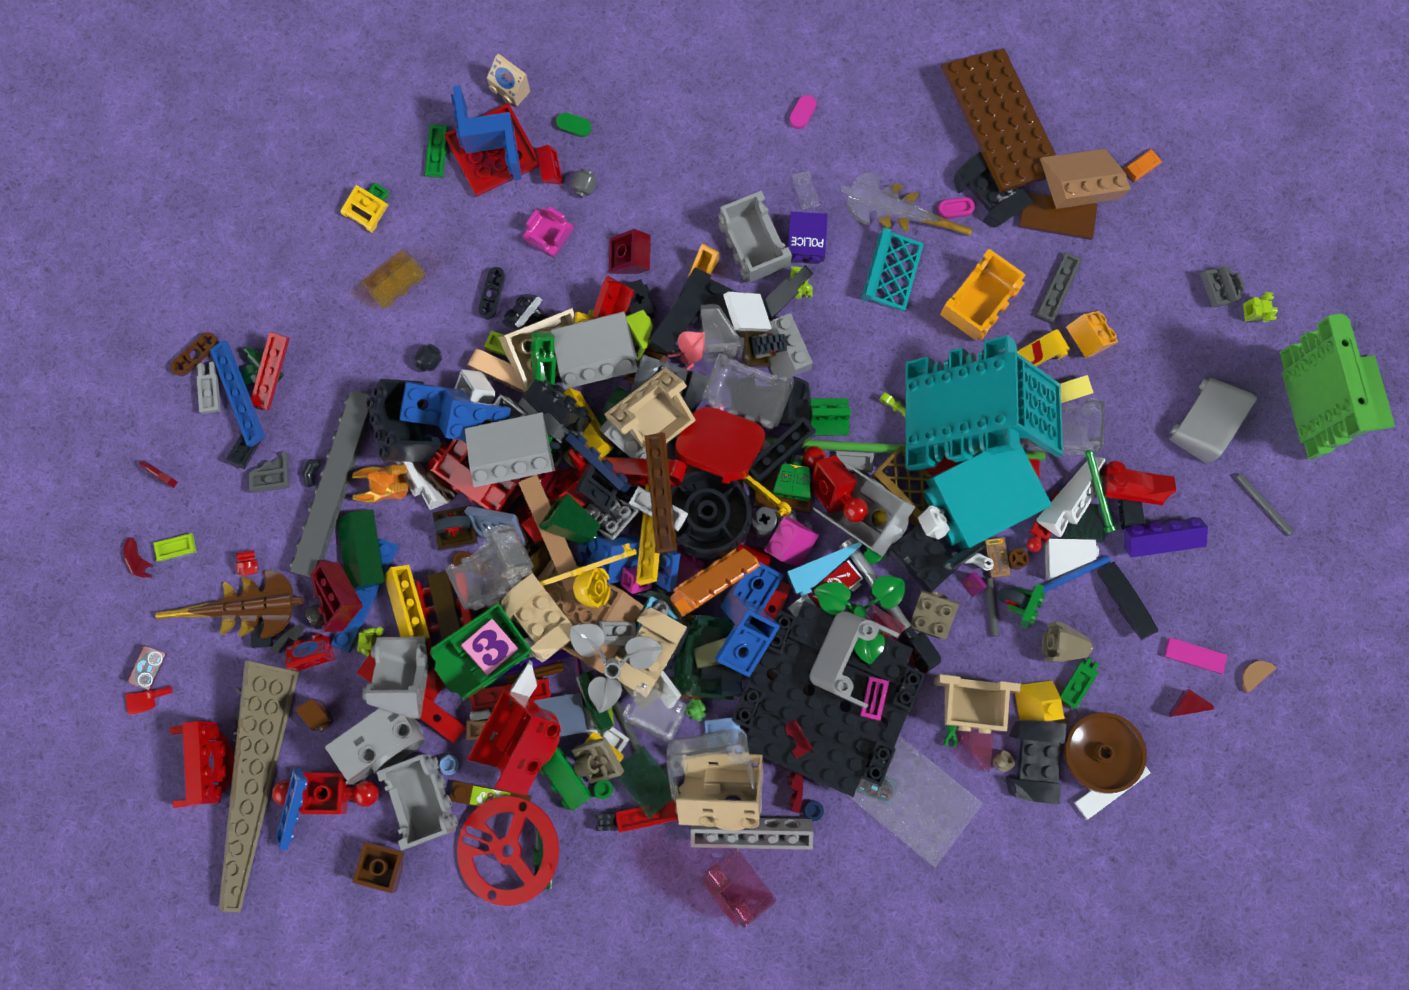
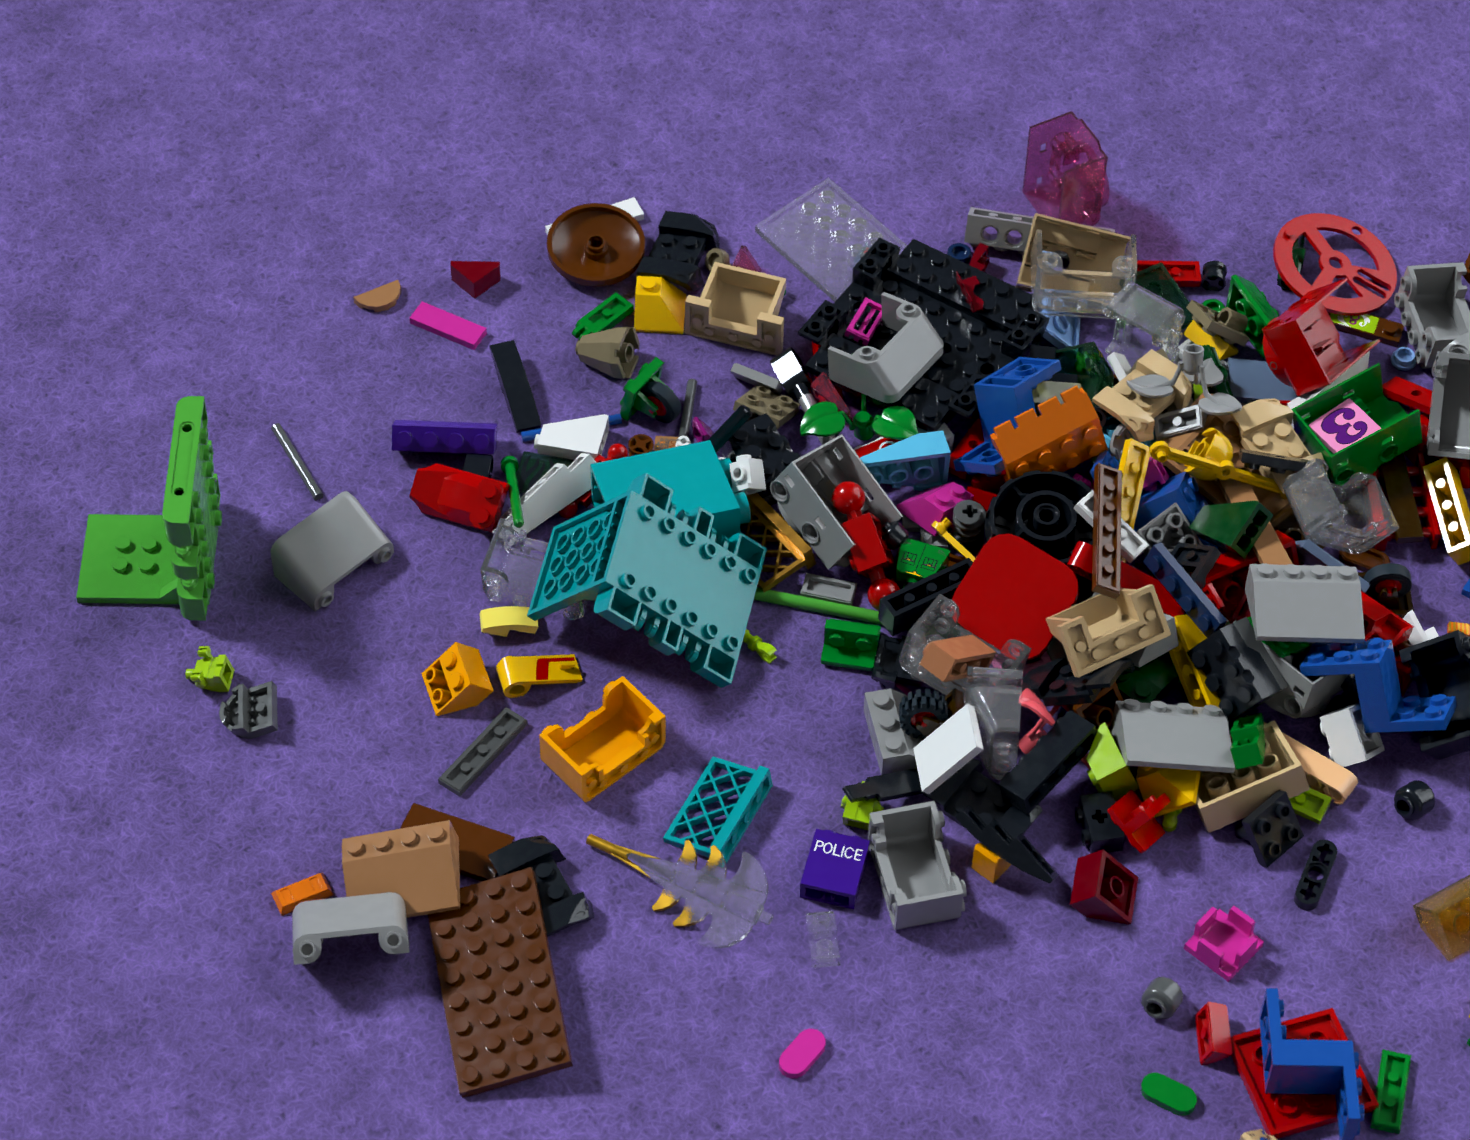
camera: 170 degrees left, 25 degrees down
(537, 589) = (1277, 463): none -> black tile
(697, 259) = (1016, 852): none -> black slope
(753, 379) = (951, 657): none -> nougat brick
(816, 499) = (894, 534): none -> black piece
(948, 642) = (756, 378): none -> light grey tile
(955, 208) = (601, 879): dark pink tile -> none
(1103, 125) = (348, 917): none -> light grey windscreen

